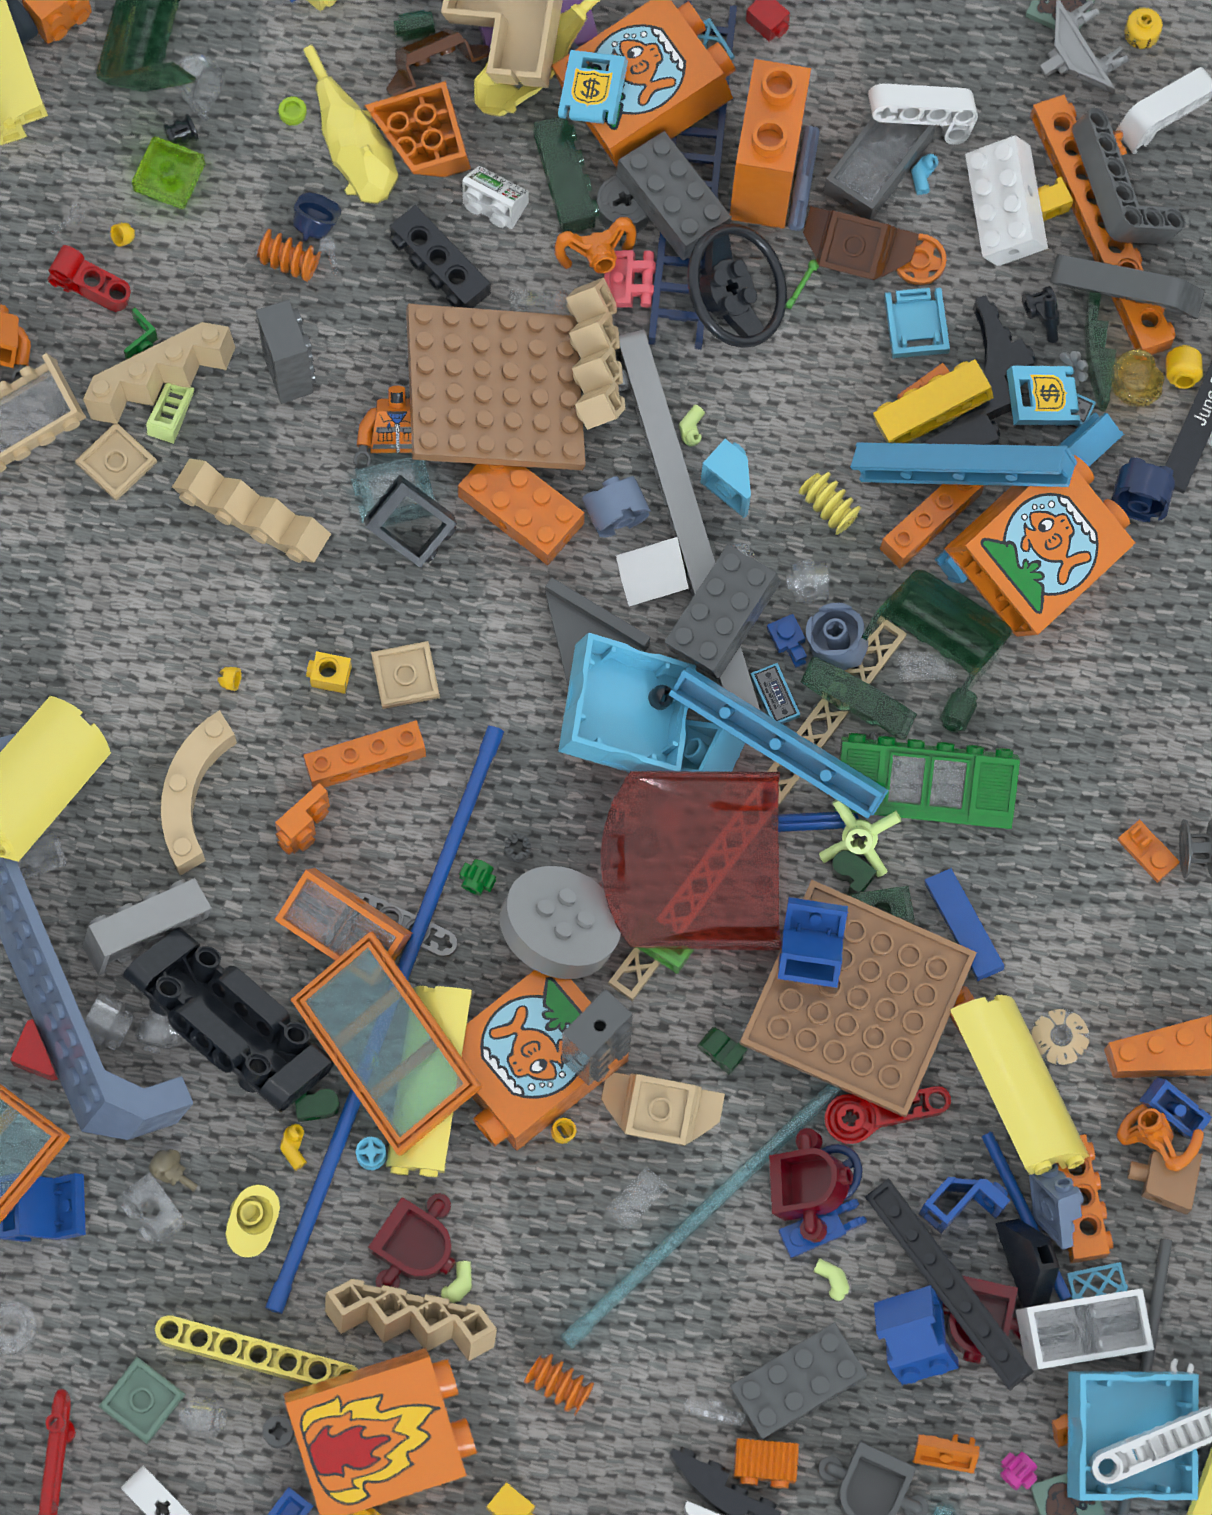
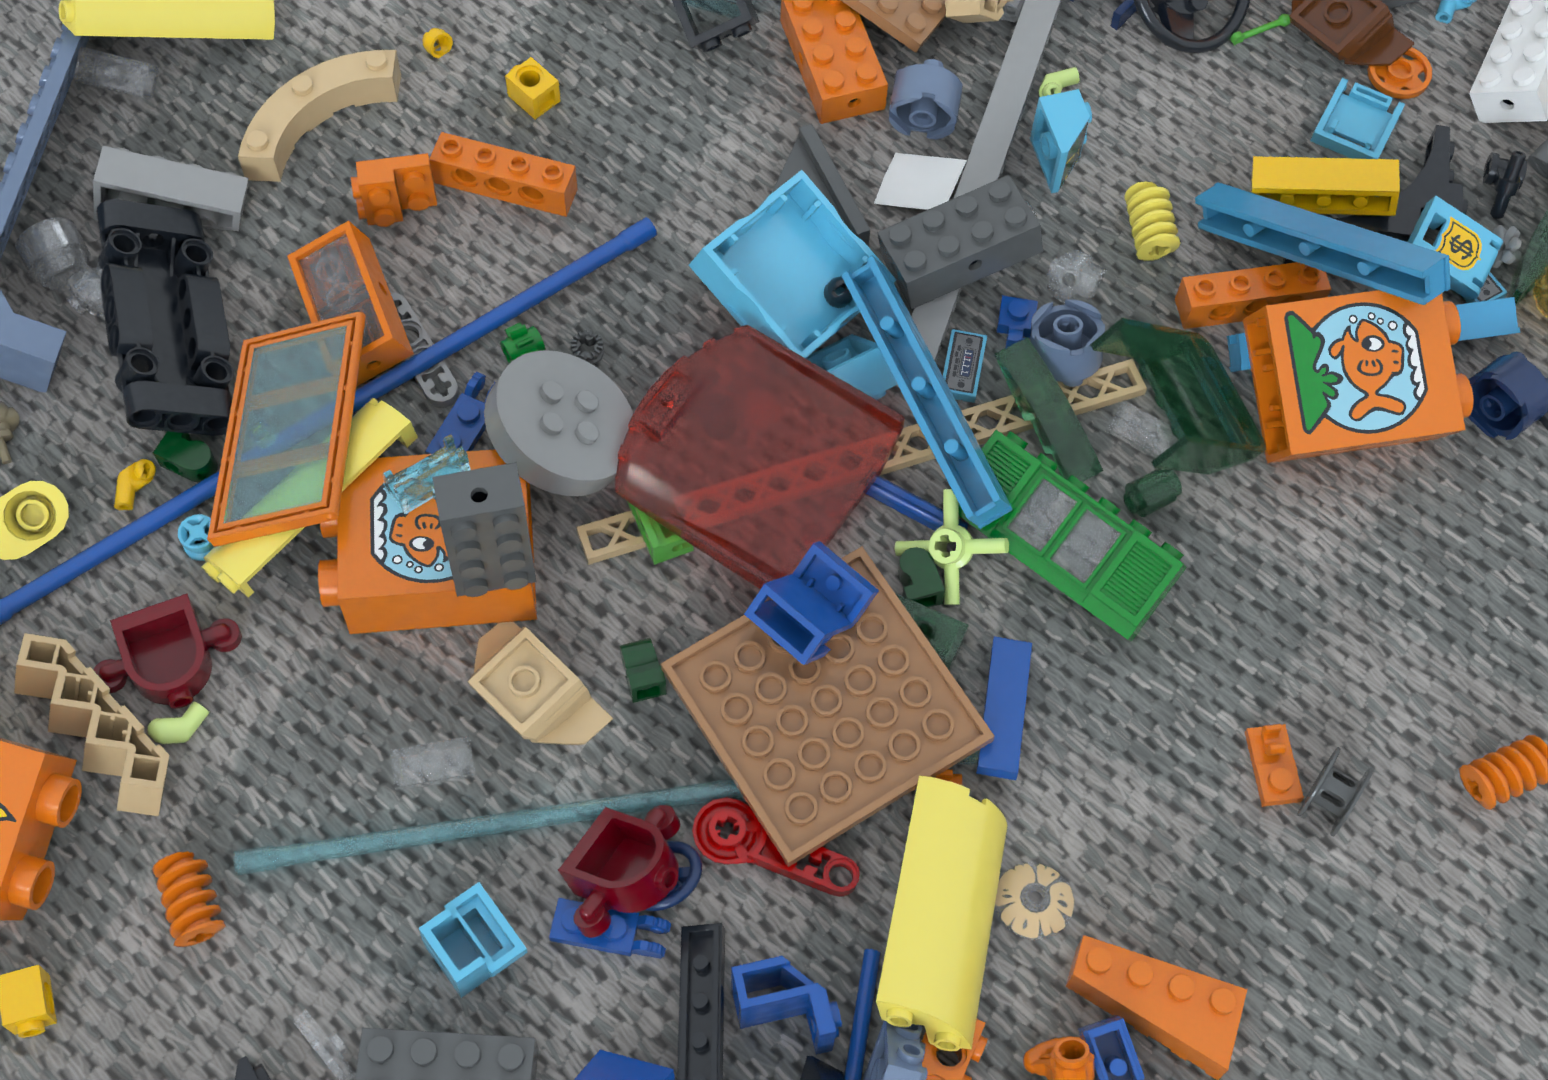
camera: 35 degrees right, 10 degrees down
(405, 675) = (604, 135): tan tile -> none
(479, 958) = (465, 419): none -> blue hinge
(508, 1018) = (415, 484): none -> clear light blue hinge
(568, 1129) = (419, 643): yellow hinge -> none
(751, 1291) = (471, 940): none -> medium azure plate
(836, 1278) = (582, 995): yellowish green arm -> none

